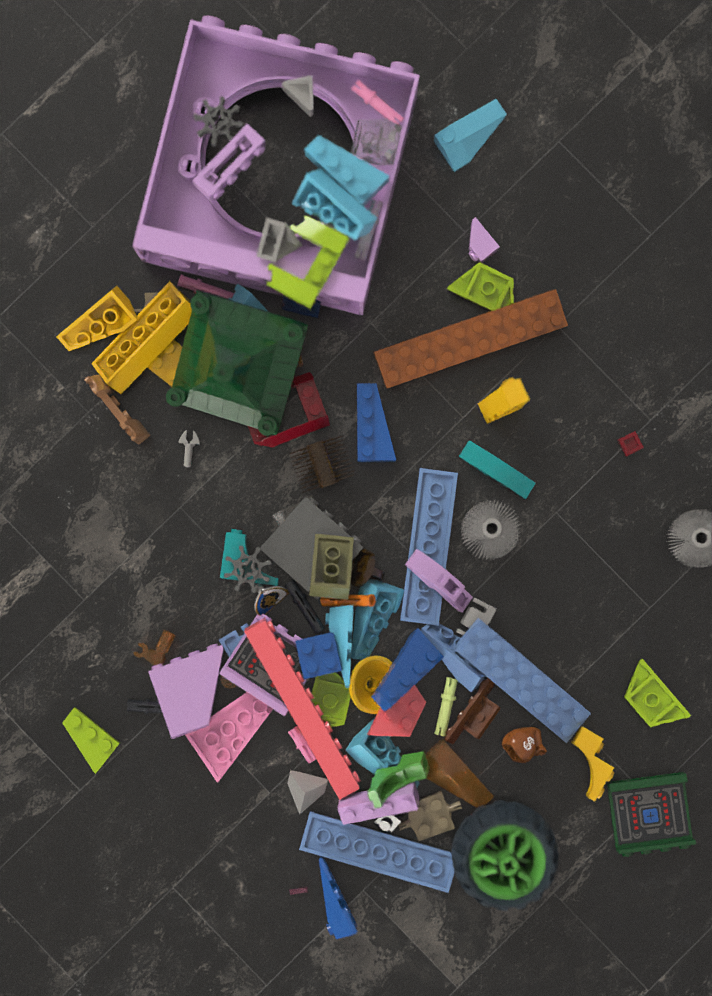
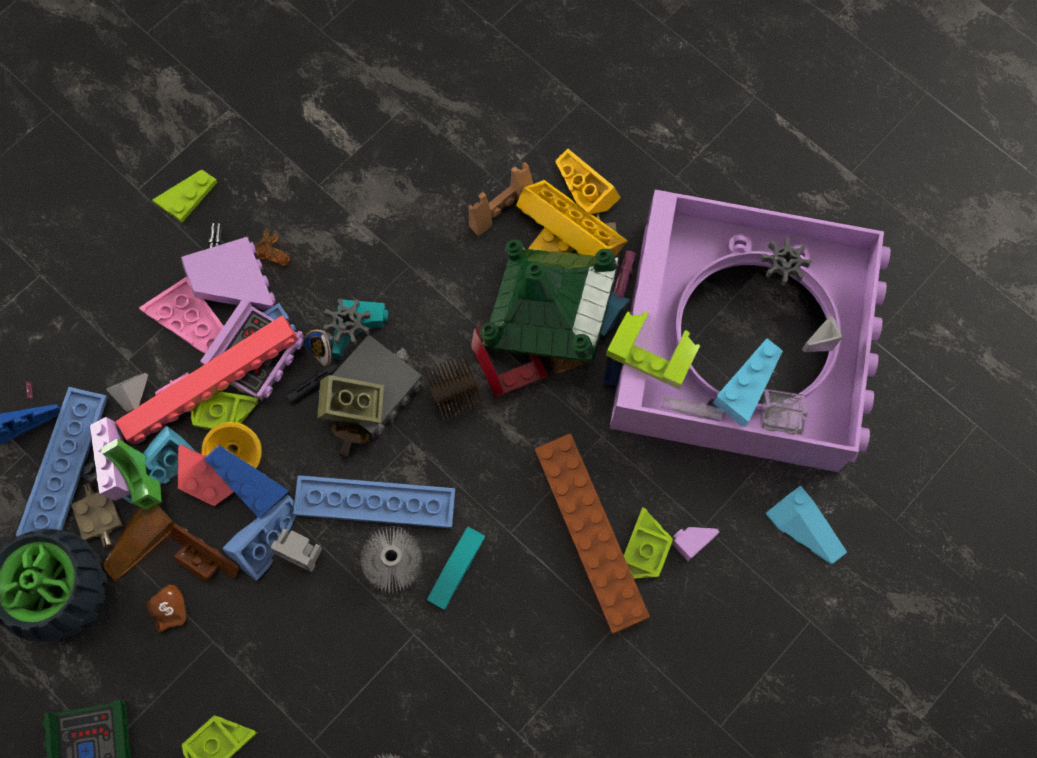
camera: 85 degrees right, 15 degrees down
(188, 447) = (469, 270): light grey bar -> none
(245, 139) = (745, 272): lavender brick -> none
(277, 241) = (671, 318): light grey slope -> none
(318, 655) = (259, 390): blue plate -> none
(333, 204) = (713, 370): medium azure wedge -> none
(340, 624) = (284, 417): medium azure wedge -> none
(355, 600) = (315, 433): orange pin -> none
(371, 620) = (304, 448): medium azure wedge -> none
(372, 430) = (495, 438): blue wedge -> none
(377, 103) = (827, 405): bright pink pin -> none
(439, 579) = (338, 510): lavender slope -> none
(446, 706) = (218, 528): yellowish green pin -> none
(504, 401) = (528, 568): yellow wedge -> none
(521, 680) = (232, 599): medium blue plate -> none
(599, 770) = (166, 677): yellow arch -> none
(630, 443) = (490, 711): dark red tile -> none

